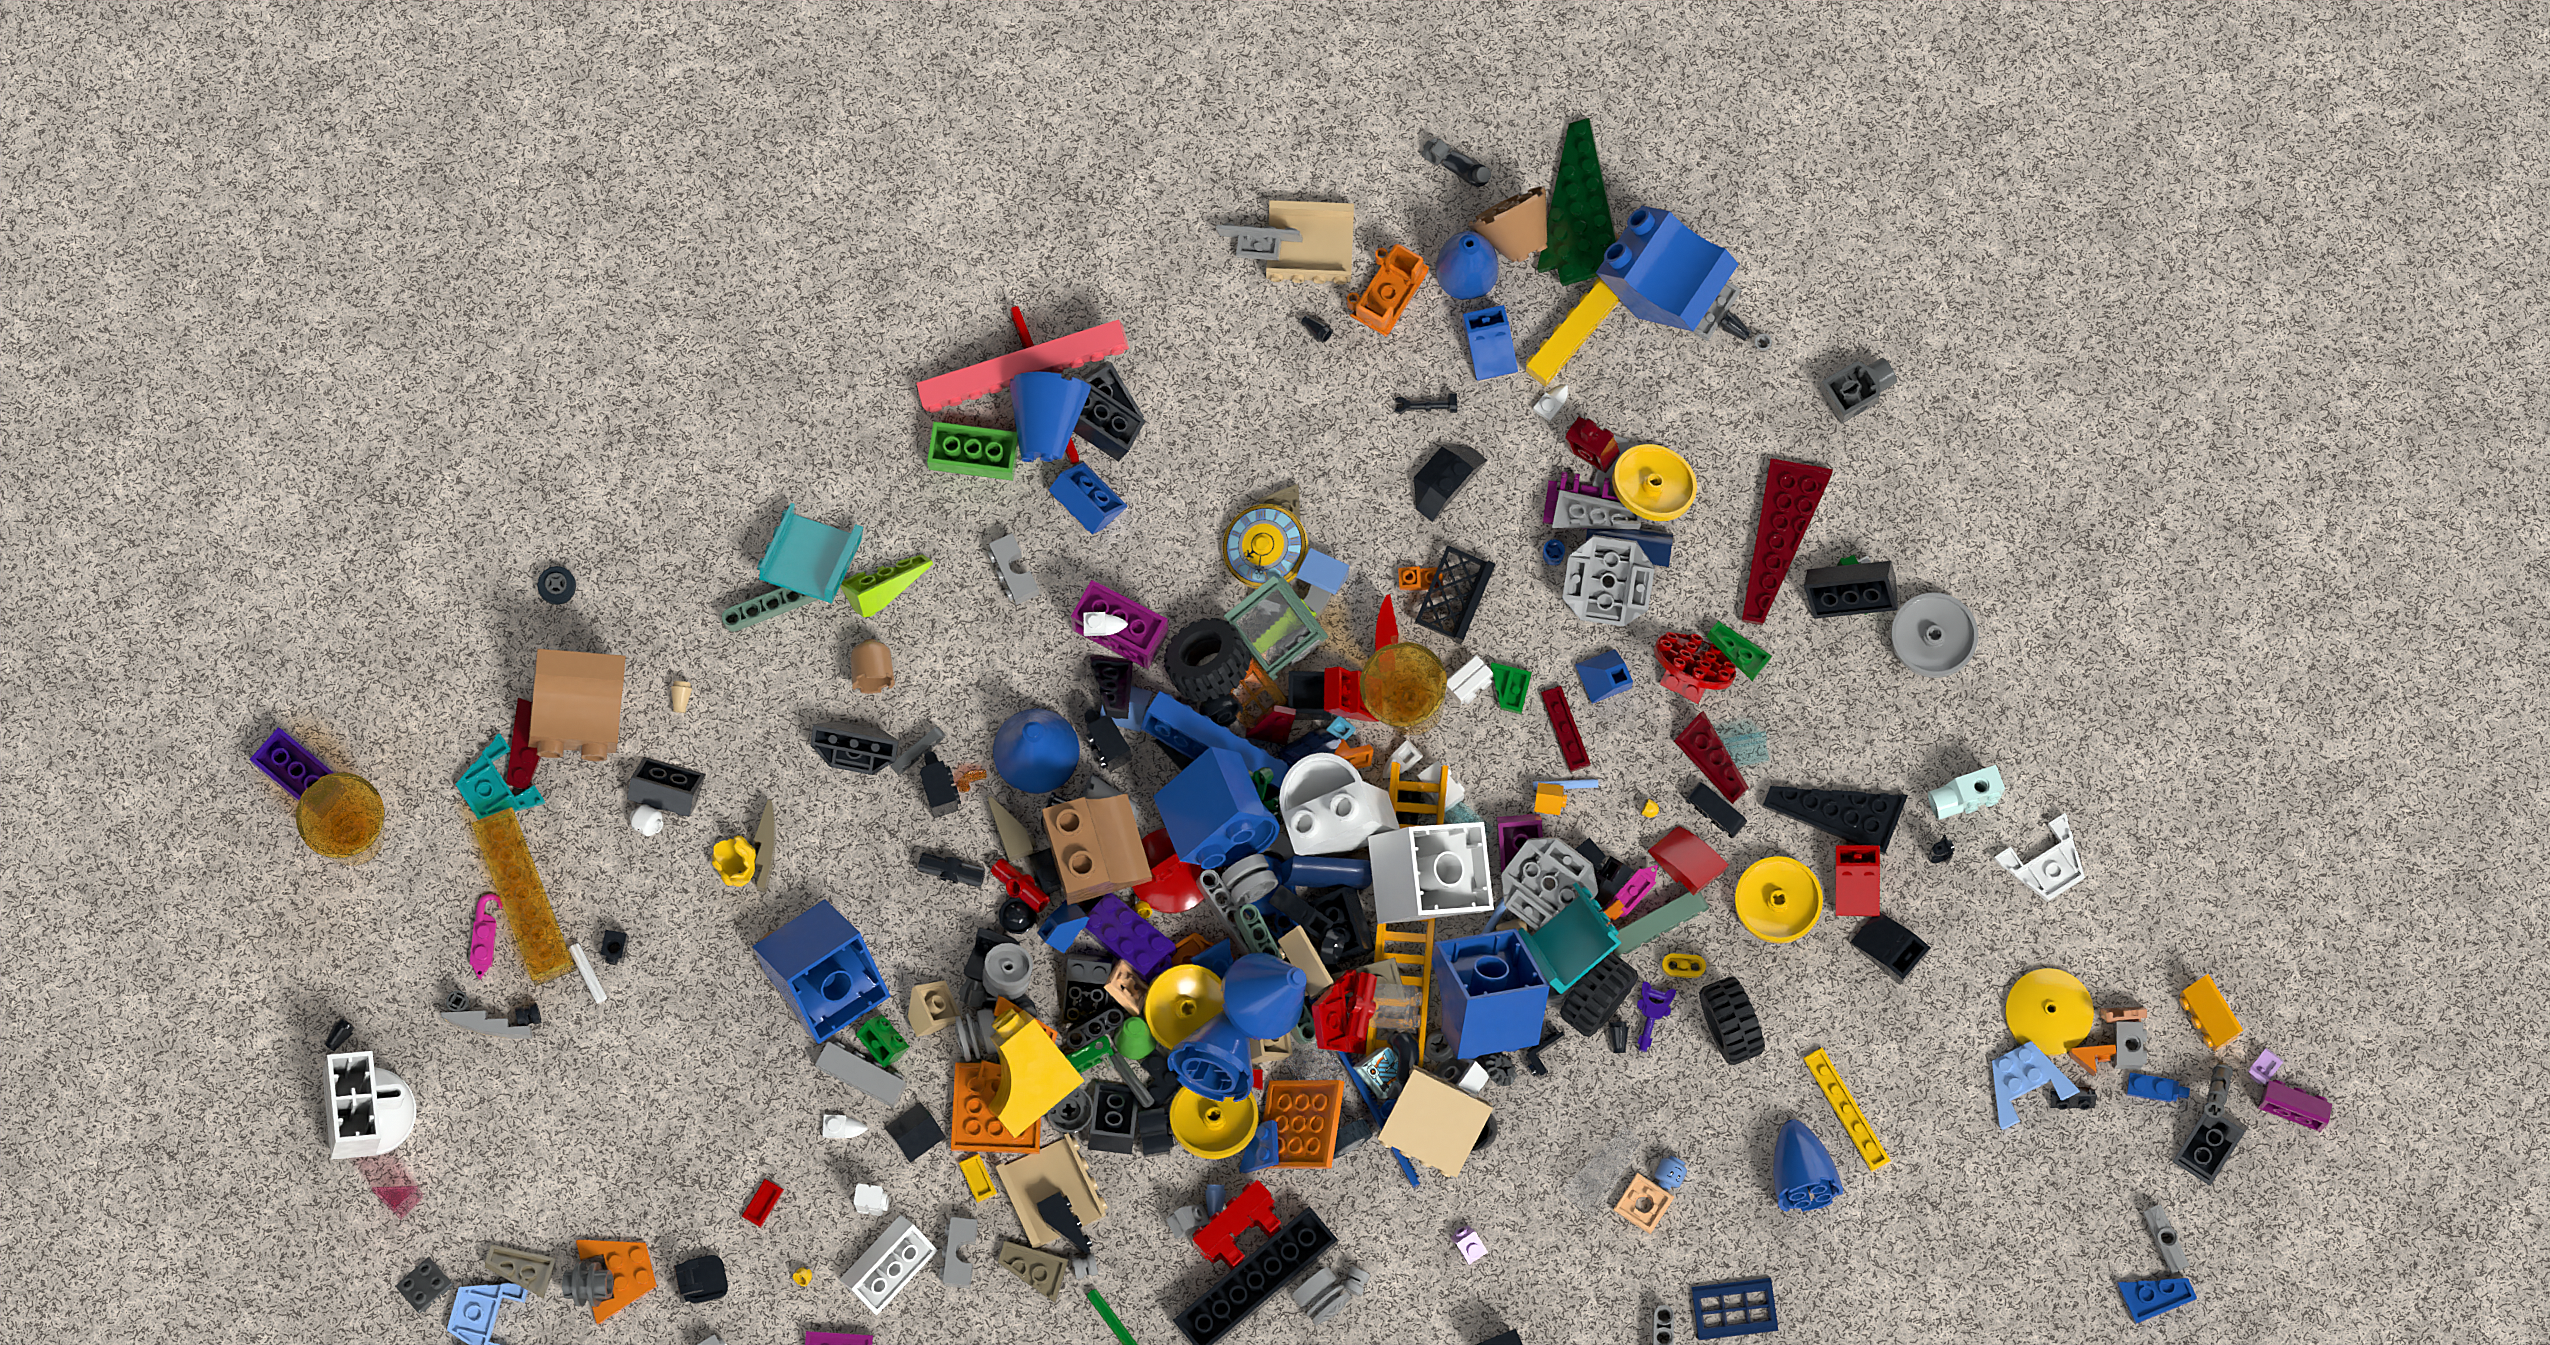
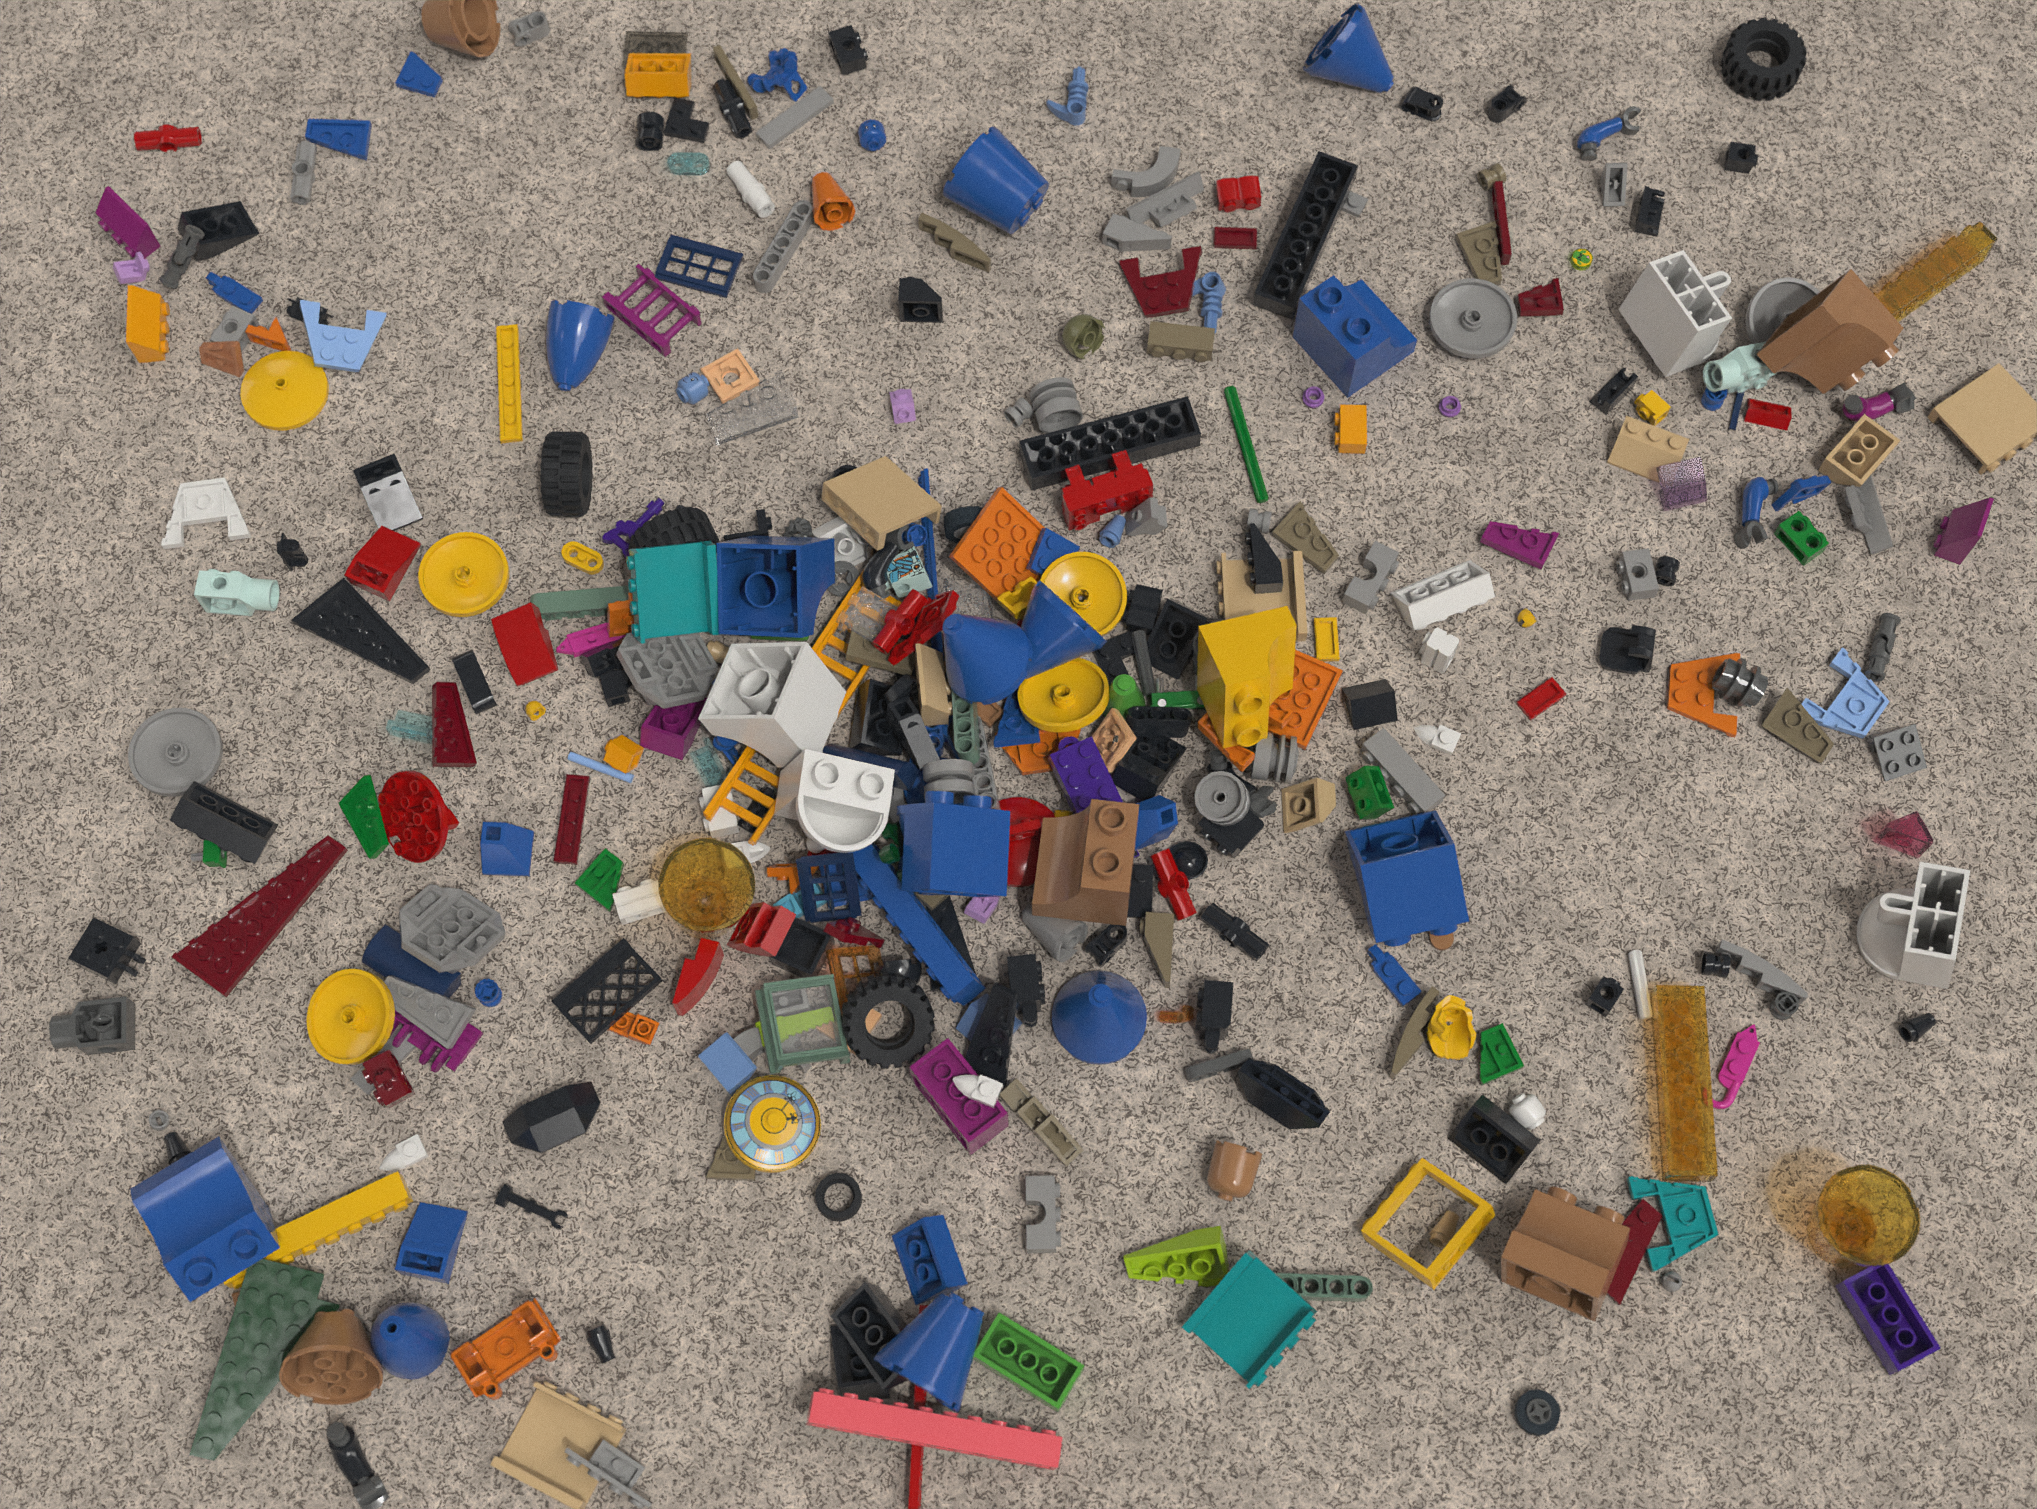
camera: 155 degrees left, 5 degrees down
(482, 738) = (1672, 1286): none -> light grey hinge
(652, 708) = (1457, 1245): none -> yellow window
(688, 859) = (1497, 1055): none -> green wing
(798, 889) = (1393, 976): none -> blue hinge
(1047, 643) = (1040, 1122): none -> dark tan slope
(1187, 499) = (834, 1179): none -> black tyre
(1266, 1080) = (1017, 601): none -> yellow cylinder
(1768, 1224) = (647, 329): none -> magenta fence
(1879, 459) = (111, 964): none -> black hinge
(2319, 1219) = (167, 138): none -> red piece

